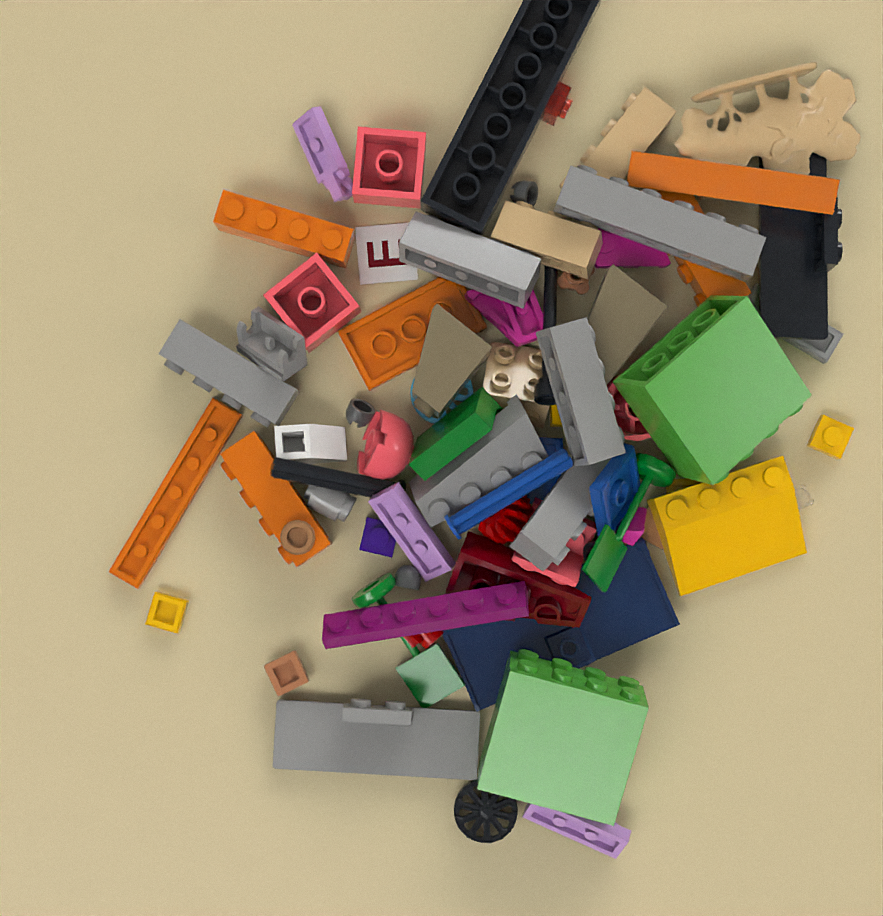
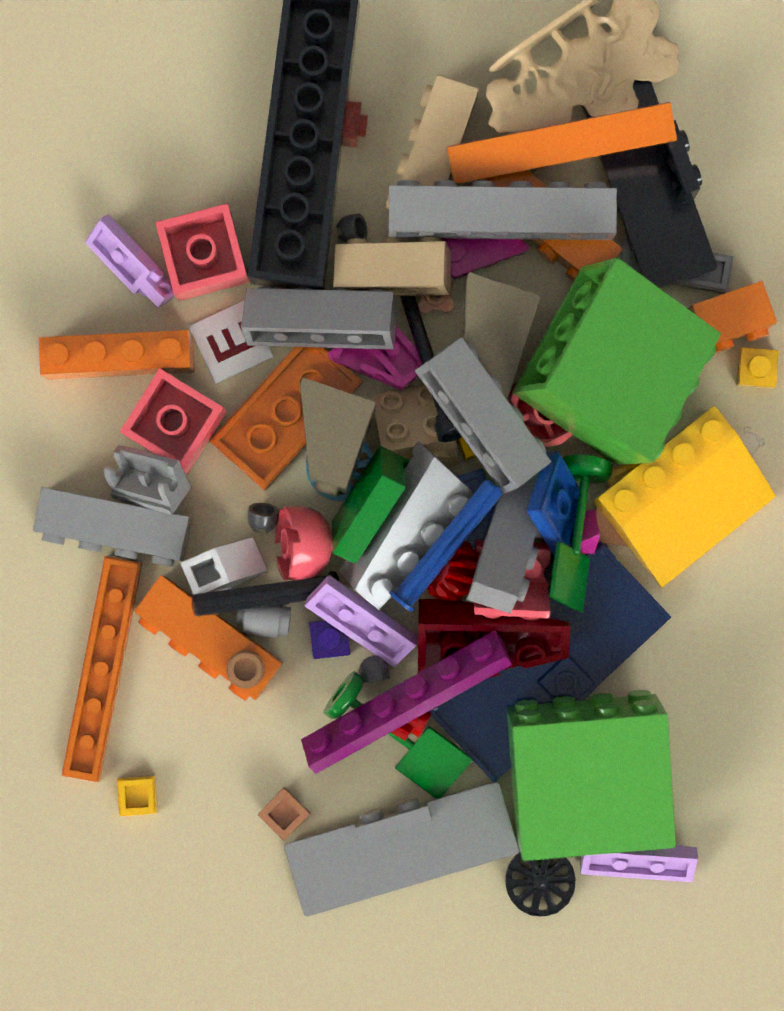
camera: 20 degrees left, 0 degrees up
(831, 385) = (738, 314): none -> orange brick

